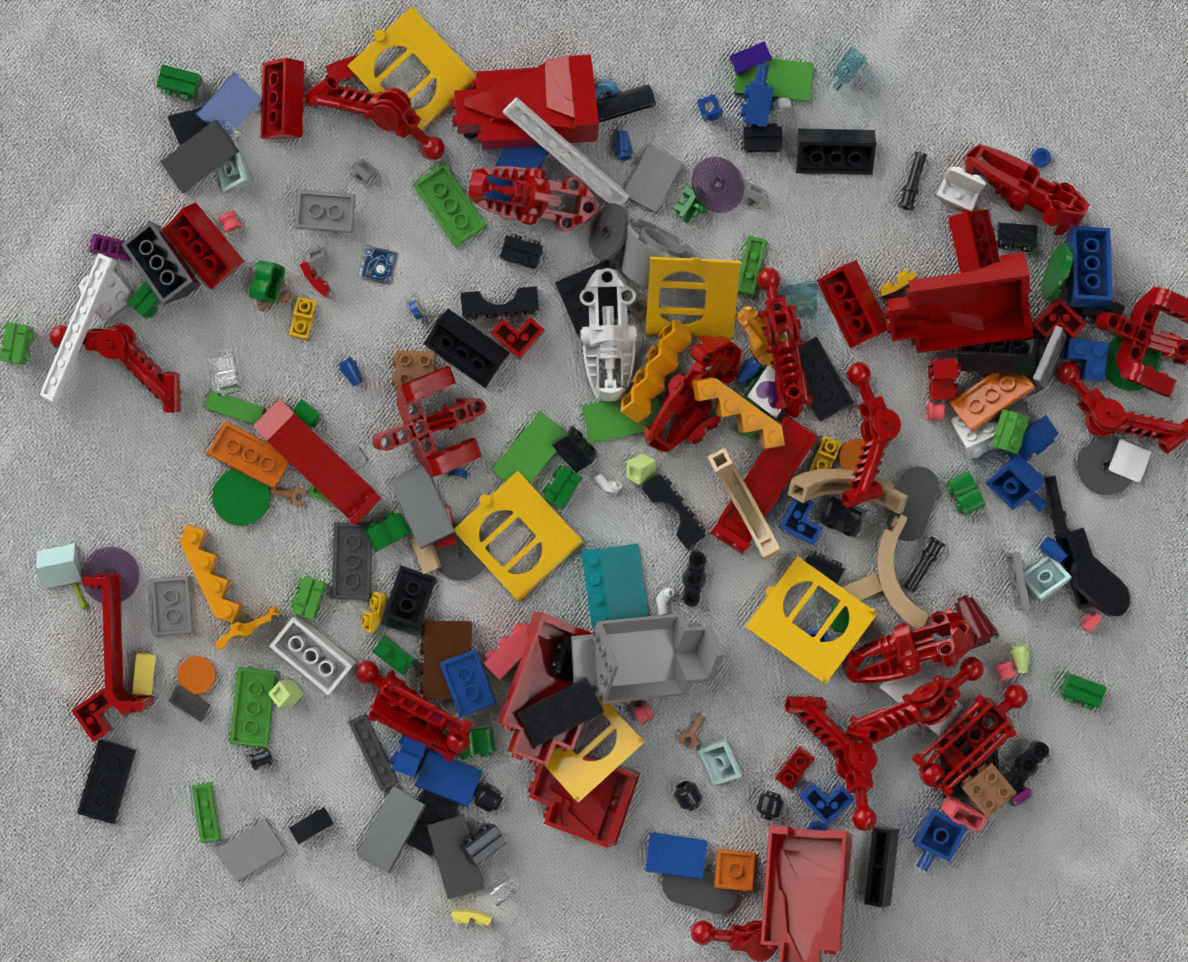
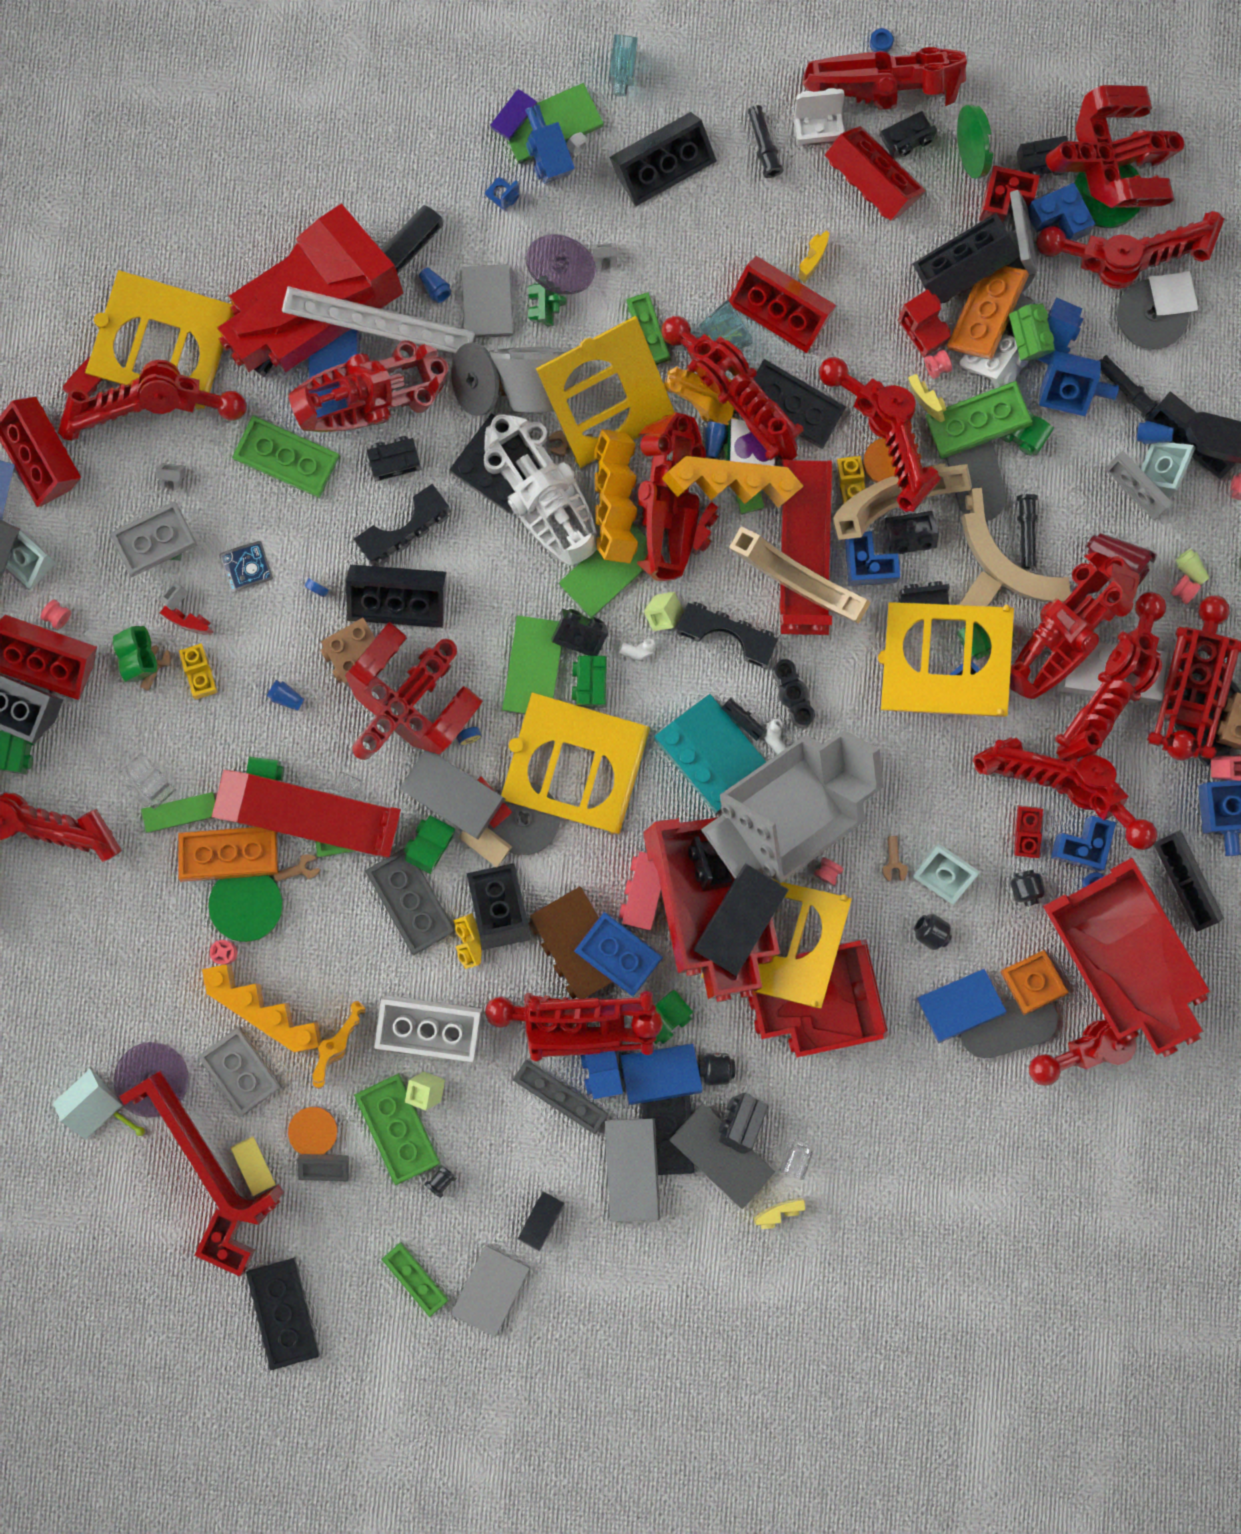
camera: 35 degrees left, 5 degrees down
(205, 518) = (220, 949): none -> coral wheel
(309, 597) = (386, 968): bright green brick -> none
(393, 655) = (517, 974): green brick -> none
(518, 341) = (445, 554): red brick -> none
(606, 86) = (382, 232): dark azure arm -> none
(649, 575) = (743, 719): none -> black pin
(762, 138) = (578, 190): black brick -> none
(911, 433) = (928, 400): none -> light yellow slope
(937, 468) = (979, 420): none -> bright green tile
(964, 307) = (902, 231): red panel -> none
(1091, 270) = (1014, 122): blue brick -> none

